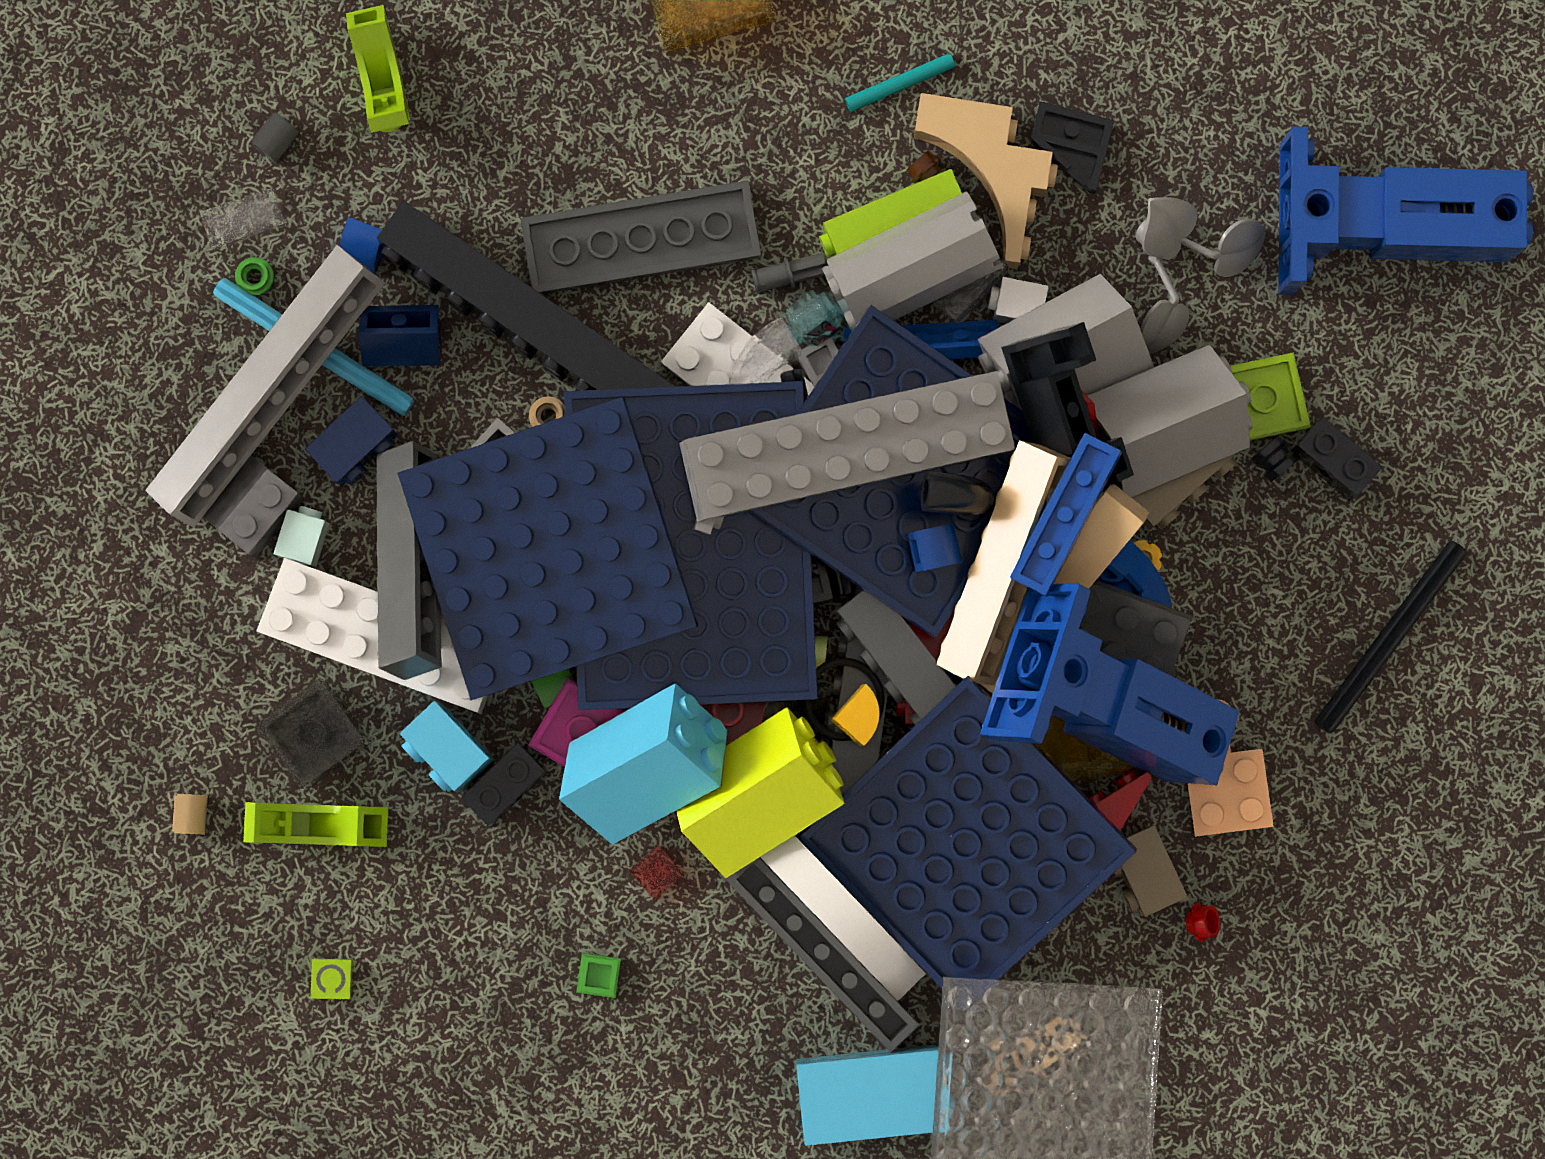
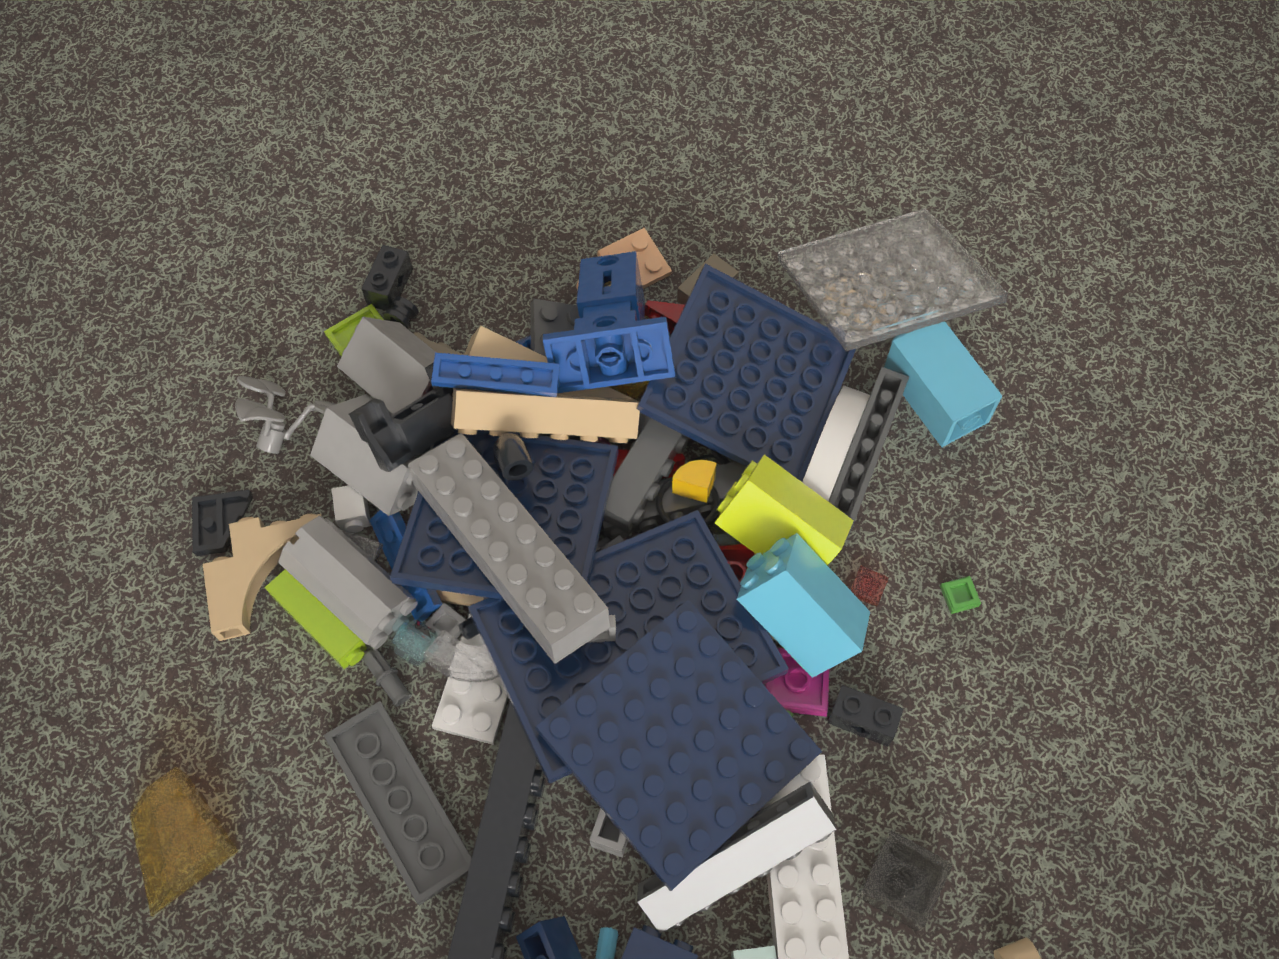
camera: 110 degrees left, 20 degrees down
(315, 824) = (968, 847): lime arch -> none
(331, 978) = (1072, 785): lime tile -> none
(446, 747) = (861, 767): medium azure brick -> none
(543, 404) = (562, 804): tan plate -> none
(900, 82) = (208, 659): teal piece -> none
(924, 167) = (270, 613): reddish brown plate -> none
(934, 547) = (556, 465): blue brick -> none
(1203, 922) = (723, 247): red plate -> none
(1390, 637) = (492, 214): black axle -> none
(1395, 215) = (208, 307): blue brick -> none

